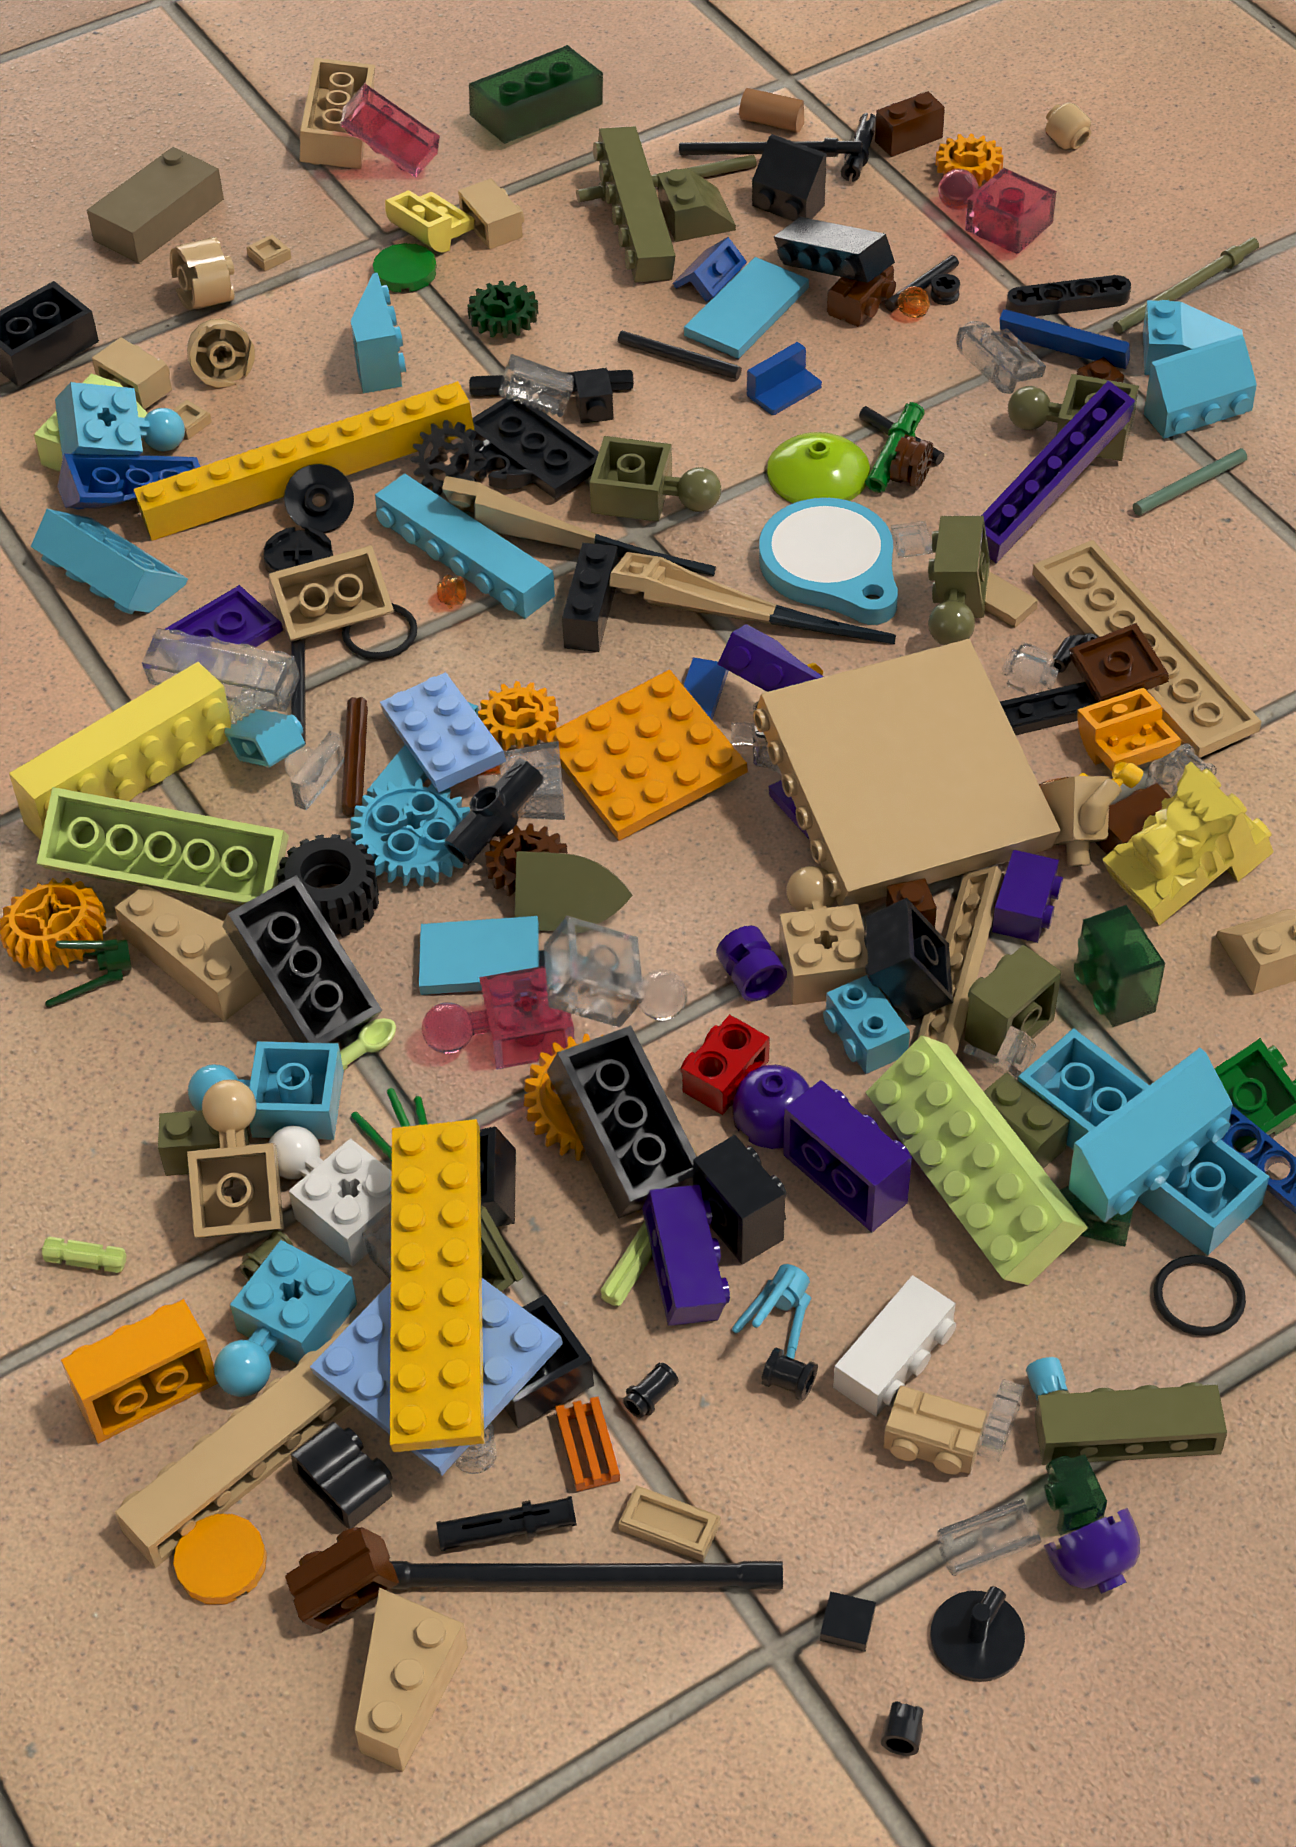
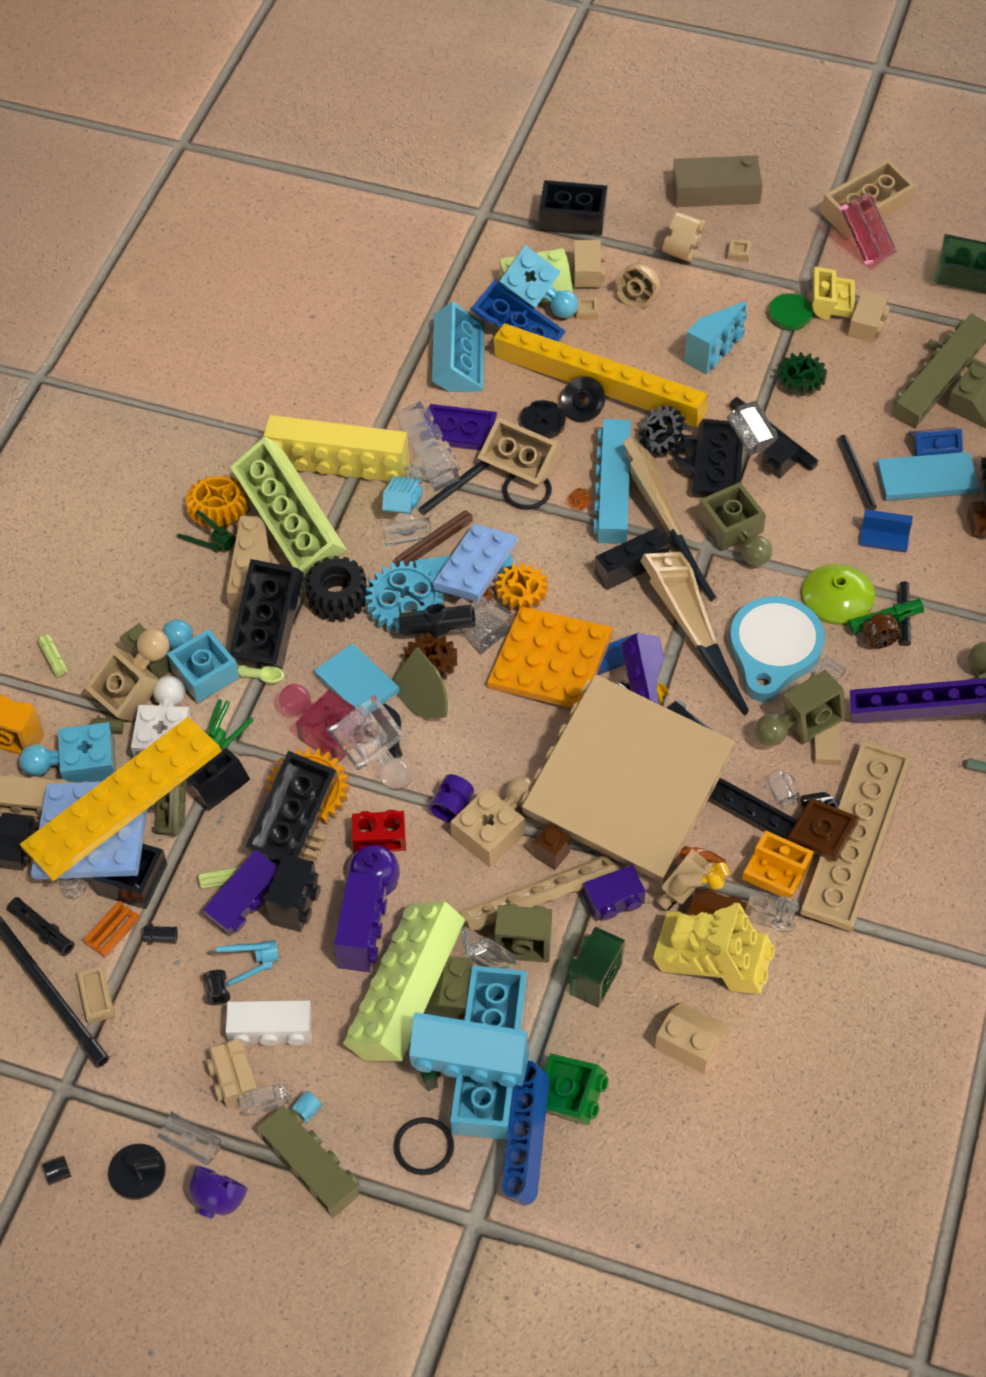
camera: 50 degrees right, 5 degrees up
(847, 1621) = (99, 1107): black tile -> none
(866, 1024) = (459, 876): medium azure brick -> none
(908, 959) = (507, 865): black brick -> none
(1074, 1493) = (245, 1161): clear green brick -> none

